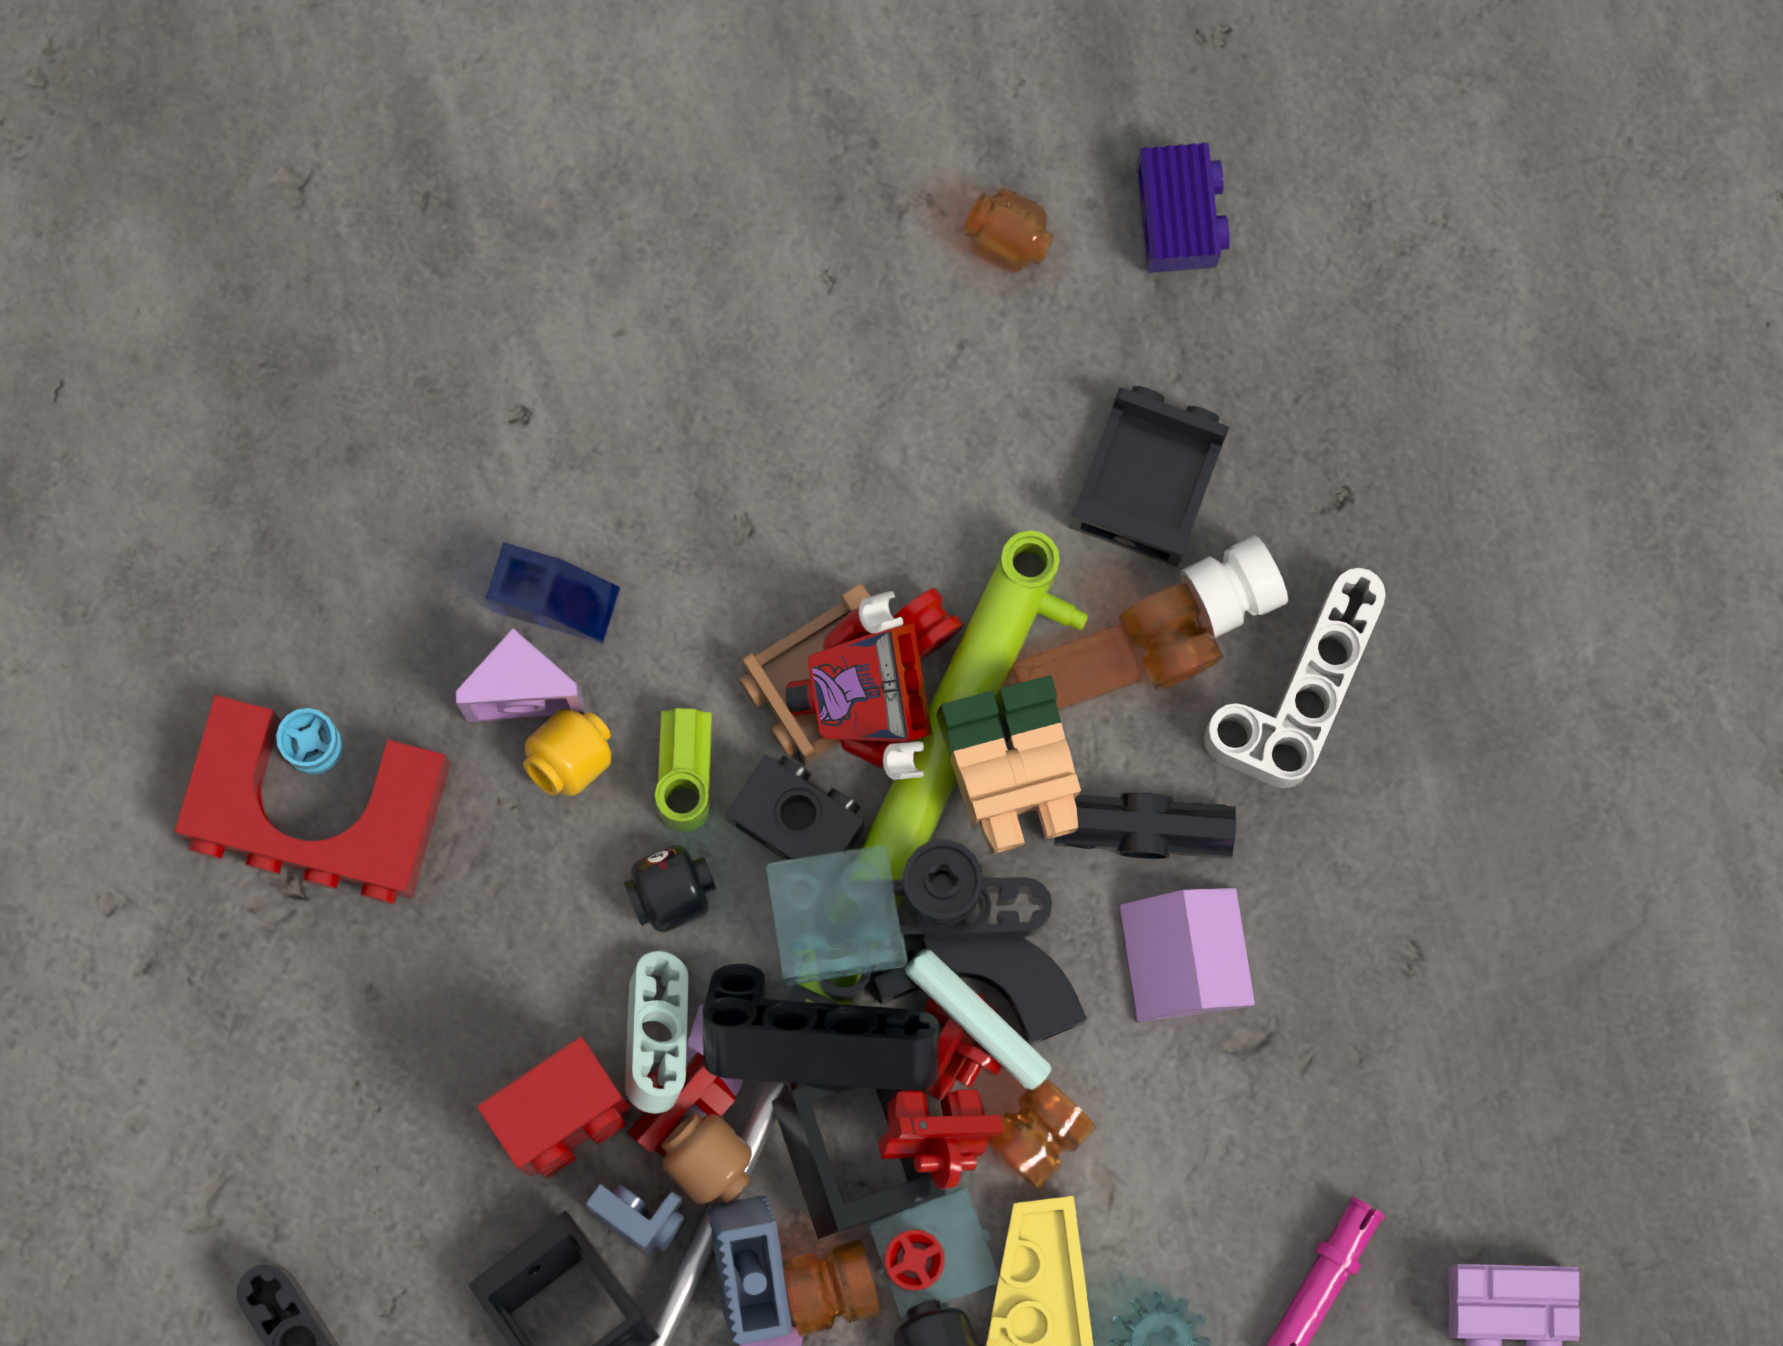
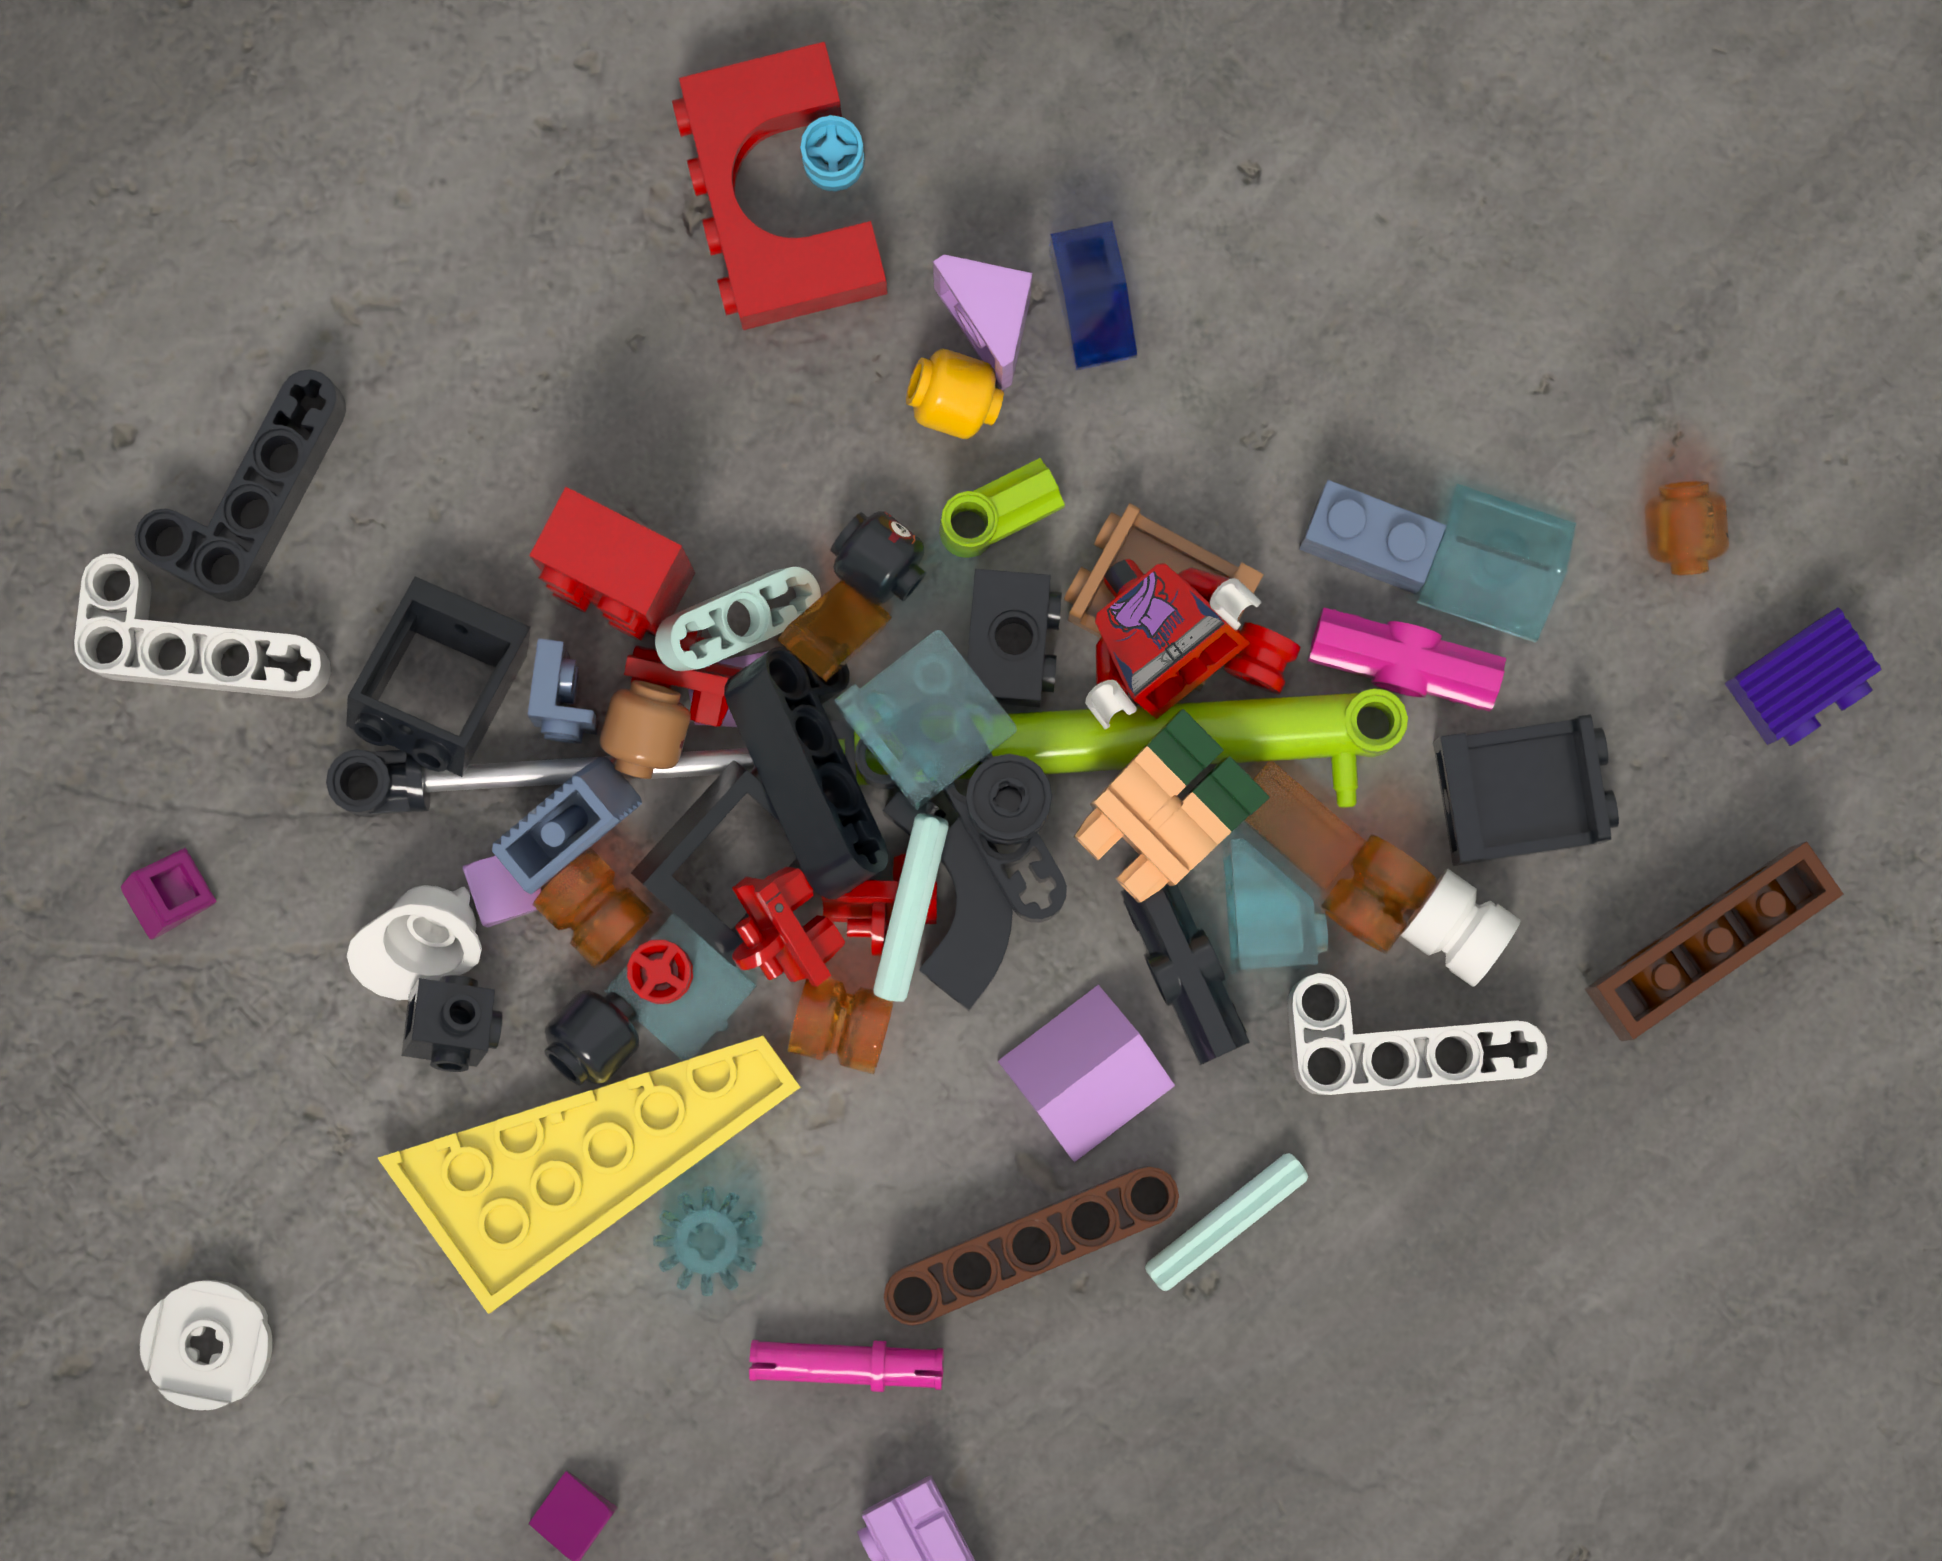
camera: 65 degrees right, 5 degrees up
(710, 957) = (834, 630): none -> clear orange tile
(877, 481) = (1372, 537): none -> sand blue brick
(953, 394) = (1498, 563): none -> clear light blue slope
(991, 509) = (1407, 659): none -> dark pink piece
(1141, 733) = (1268, 915): none -> clear light blue slope
(1320, 1050) = (1063, 1247): none -> reddish brown beam
(1354, 394) = (1714, 941): none -> reddish brown brick
(1370, 907) = (1226, 1221): none -> light aqua axle

